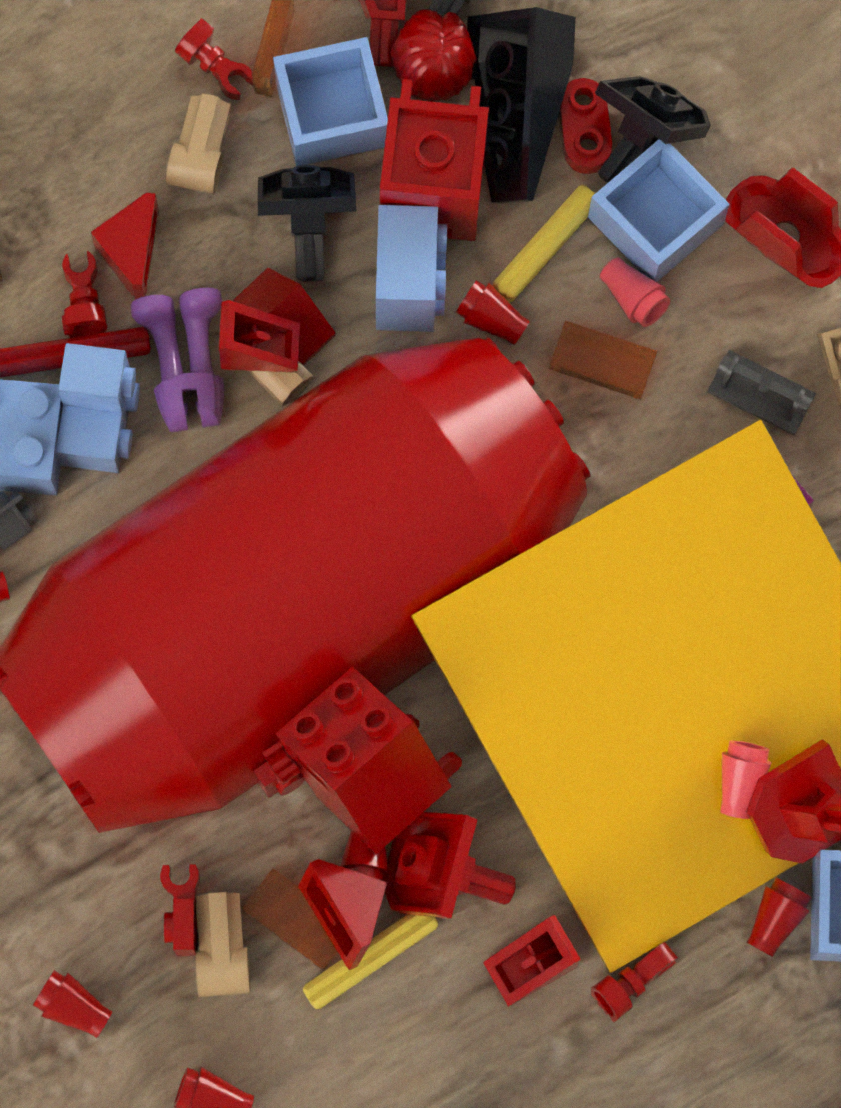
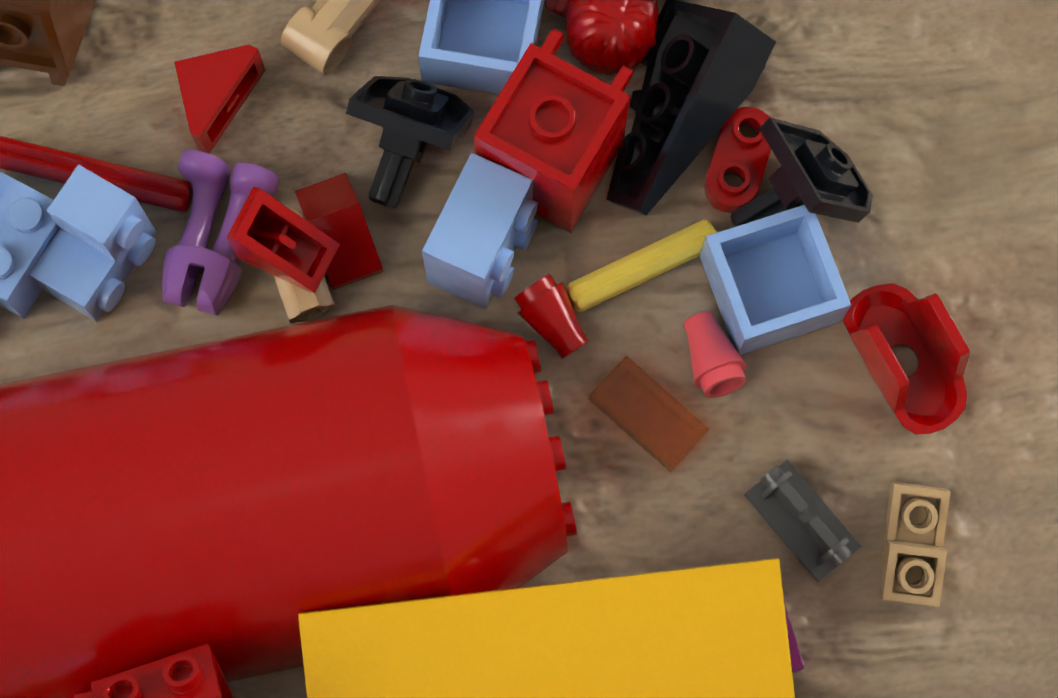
camera: 25 degrees right, 0 degrees up
(85, 313) = (137, 144): red piece -> none

